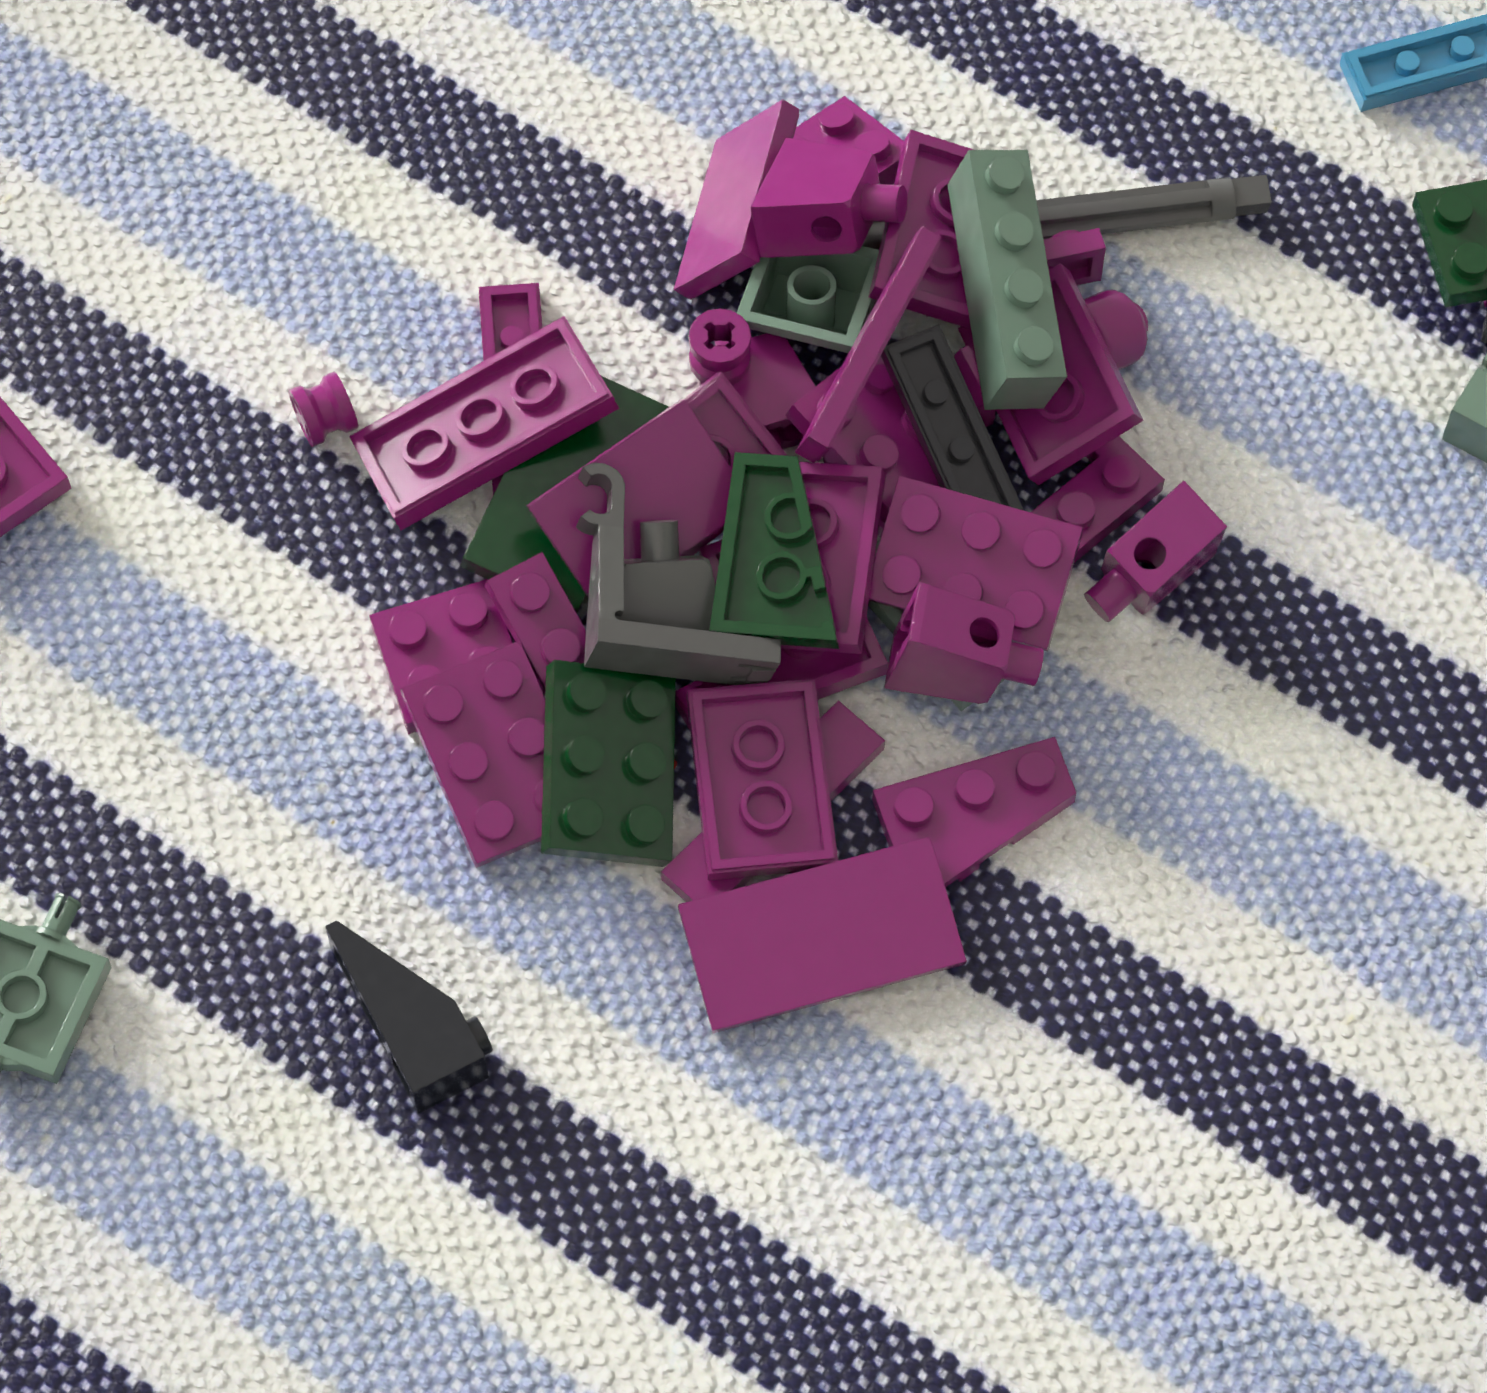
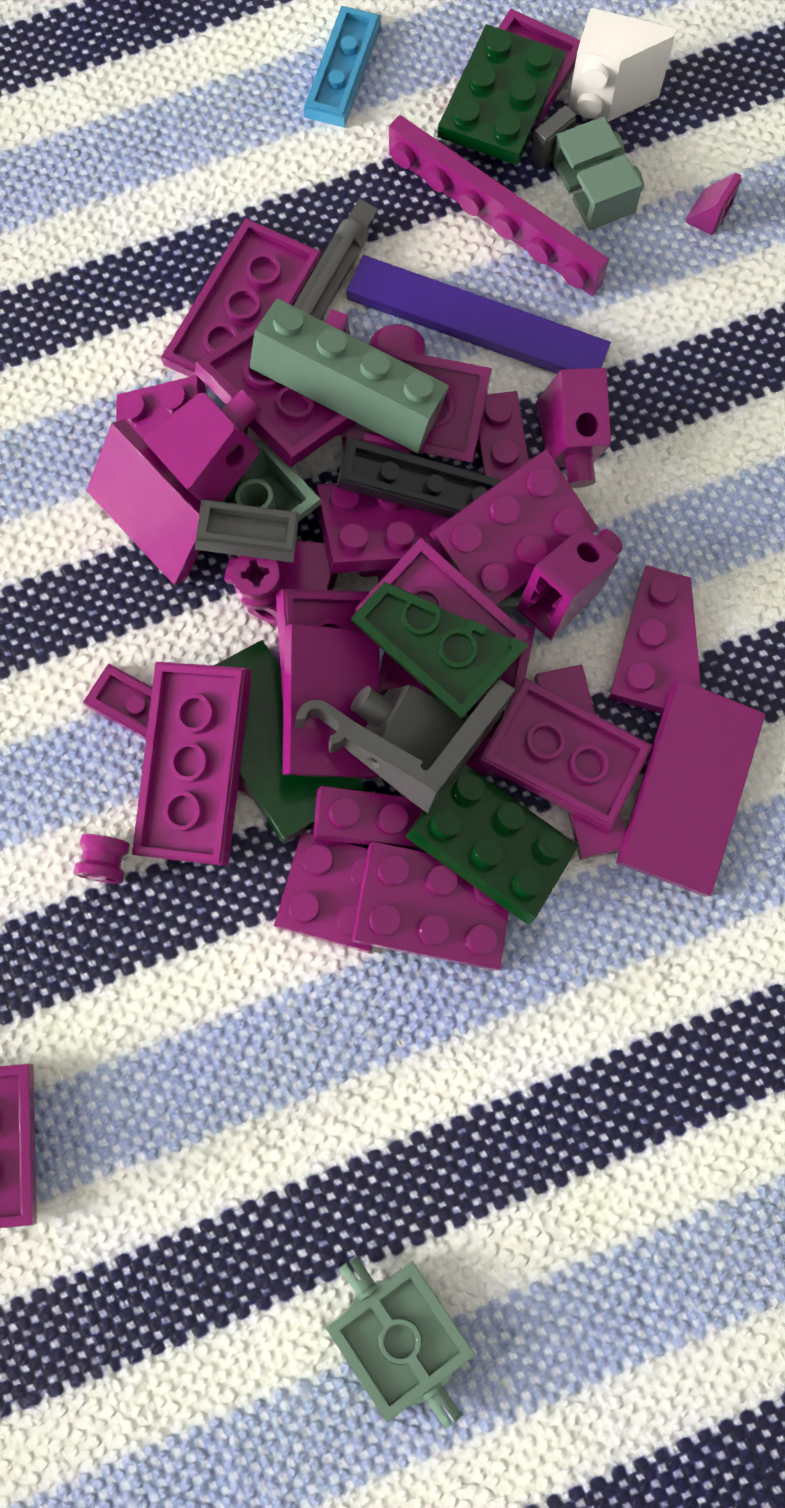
camera: 55 degrees left, 10 degrees up
(415, 1022) = (601, 1082): black slope -> none
(758, 297) = (247, 531): none -> dark grey tile
(869, 345) = (337, 486): magenta tile -> none
(1072, 139) = (241, 291): none -> magenta tile
(1225, 393) = (474, 318): none -> dark purple tile
(1374, 339) = (497, 206): none -> magenta plate

